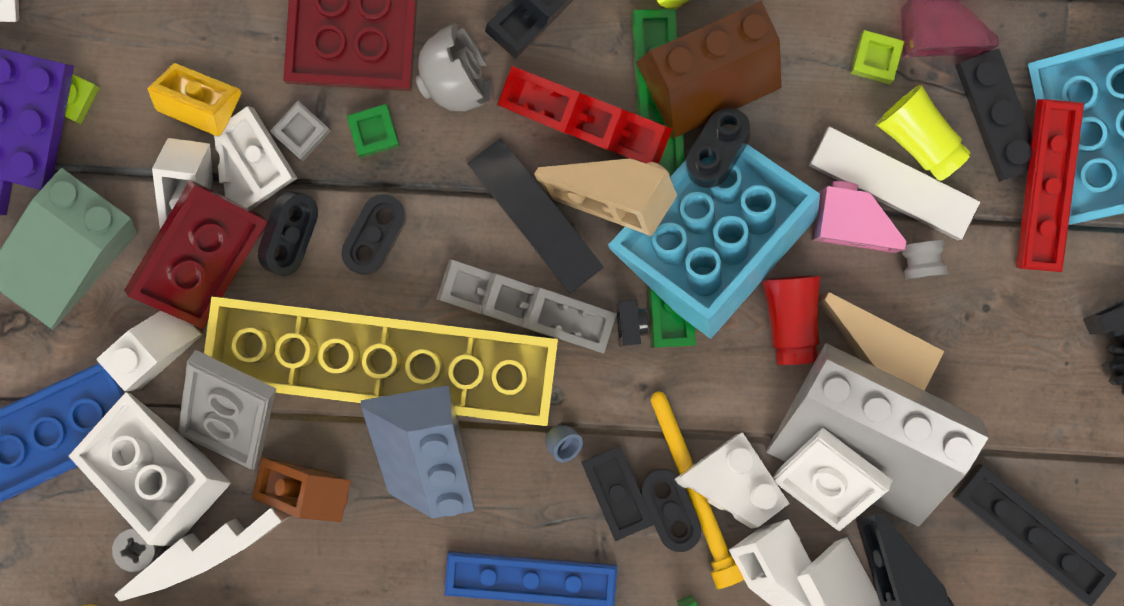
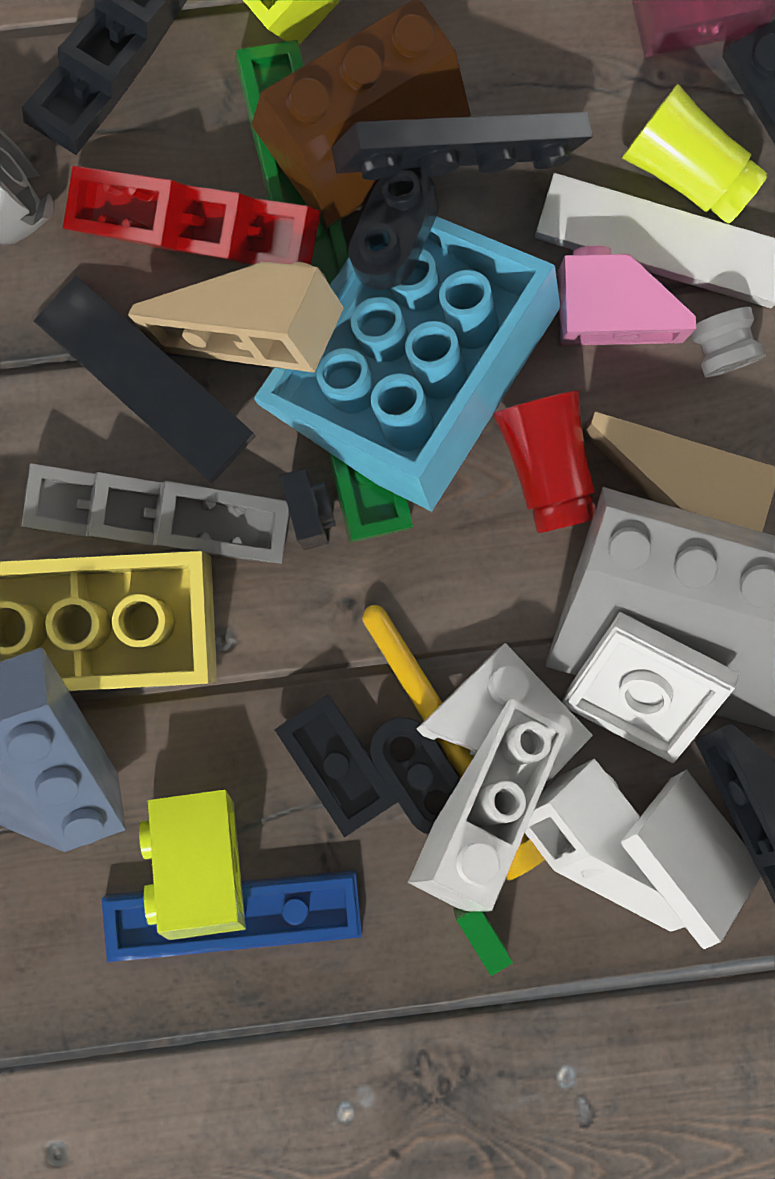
camera: 10 degrees left, 0 degrees up
(515, 542) = (192, 865): none -> neon yellow brick
(563, 443) = (244, 706): sand blue hinge -> none
(714, 541) = (489, 811): none -> white slope
(759, 102) = (444, 144): none -> black plate
(877, 57) = (606, 61): lime tile -> none

